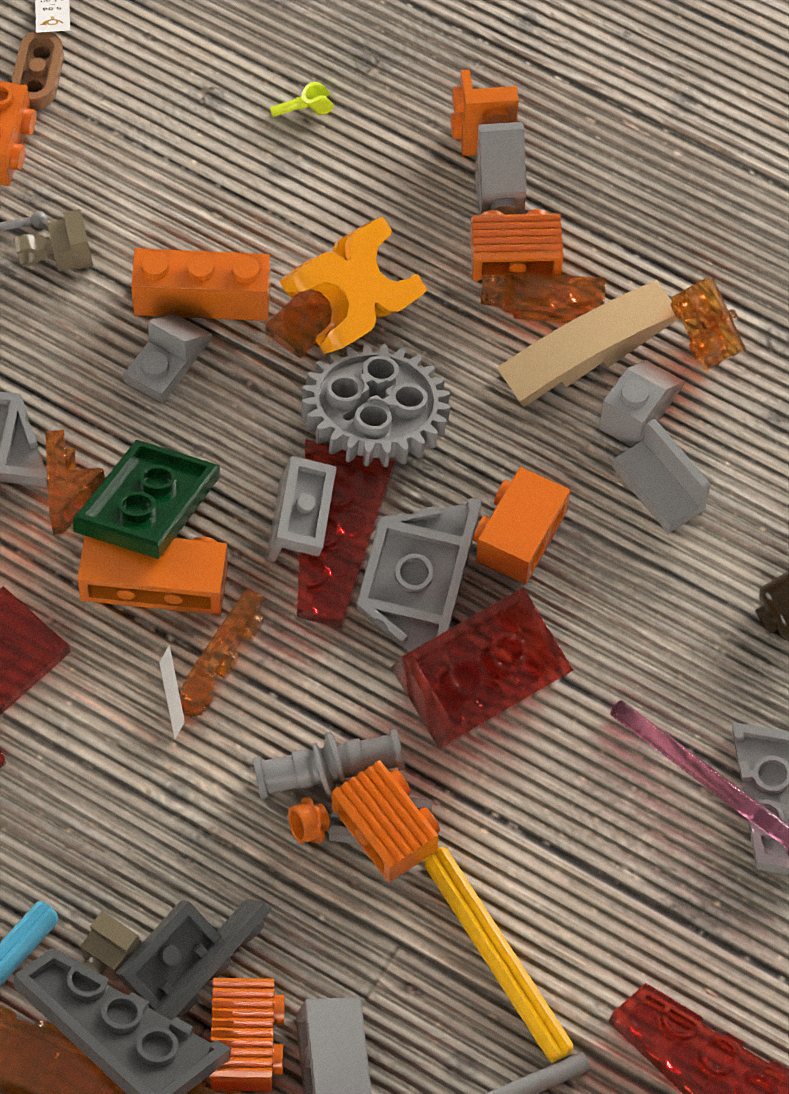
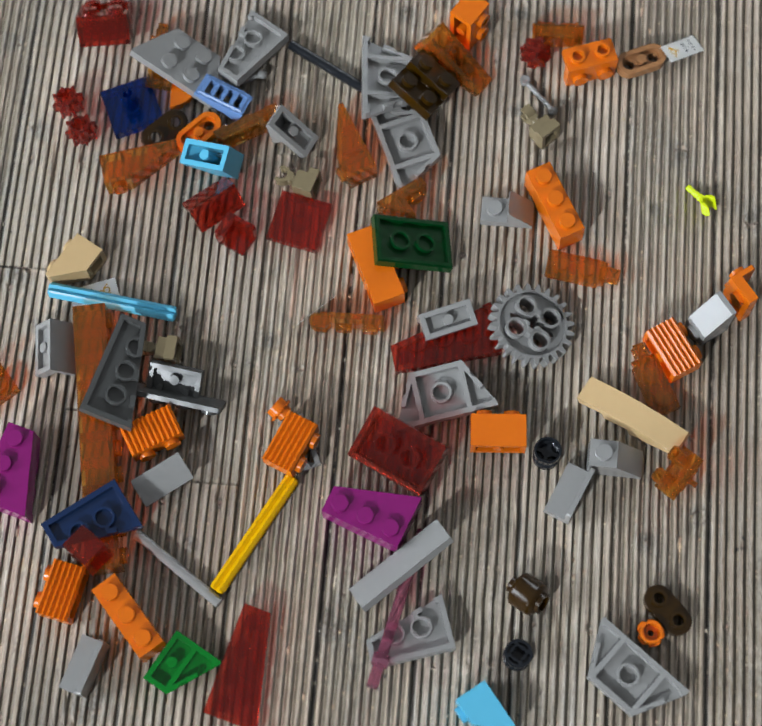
camera: 70 degrees right, 10 degrees up
(327, 764) = (312, 404): light grey piece -> none
(353, 285) = (592, 279): light orange piece -> none
(562, 759) = (373, 514): none -> magenta wedge
(585, 468) = (547, 448): none -> black wheel
(664, 754) = (401, 565): none -> light grey tile

